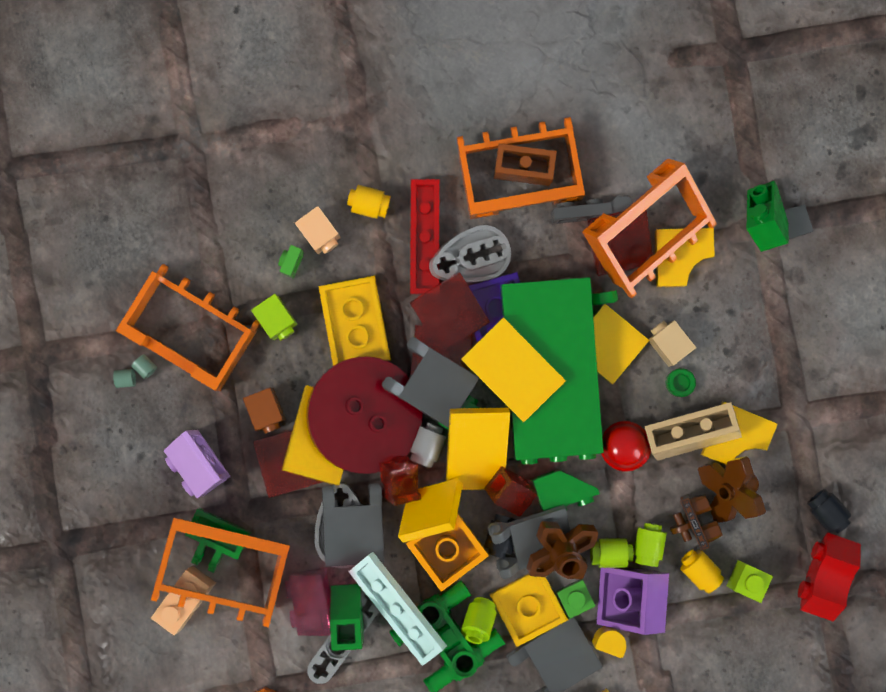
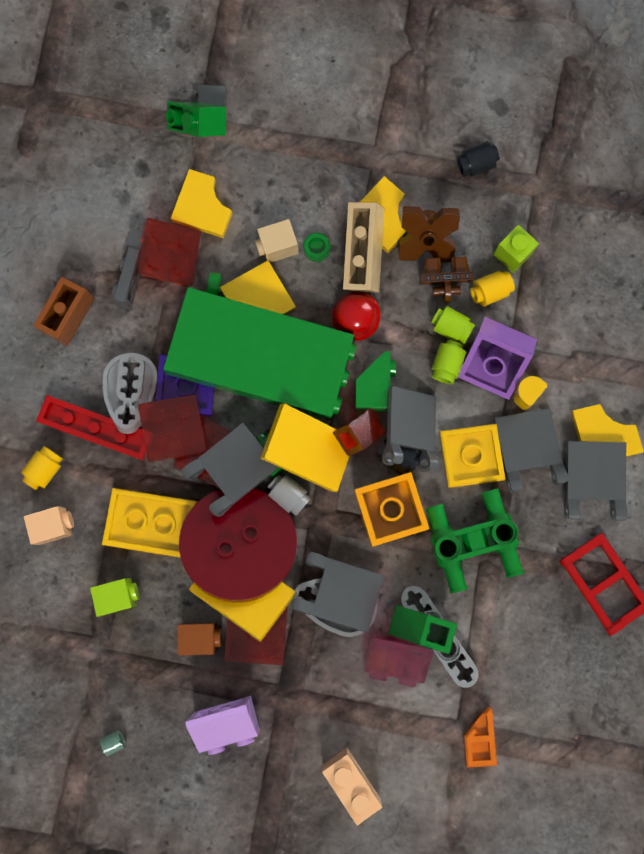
camera: 65 degrees left, 5 degrees down
(124, 378) = (116, 767): sand green piece -> none
(128, 330) = (47, 722): orange hinge -> none
(209, 519) = (301, 728): green hinge -> none
(231, 538) = (306, 716): orange hinge -> none
(290, 261) = (67, 562): bright green plate -> none
(397, 608) = (431, 576): light aqua plate -> none
(400, 480) = (311, 531): clear red brick -> none
(433, 513) = (350, 512): yellow tile -> none
(479, 620) = (469, 504): lime brick -> none
(513, 369) = (246, 387): yellow tile -> none
(557, 195) = (91, 357): orange hinge -> none
(562, 551) = (430, 404): reddish brown plant -> none
(575, 598) = (479, 410): bright green plate -> none
(607, 227) = (147, 255): orange hinge -> none
(829, 576) = (536, 178): red brick -> none

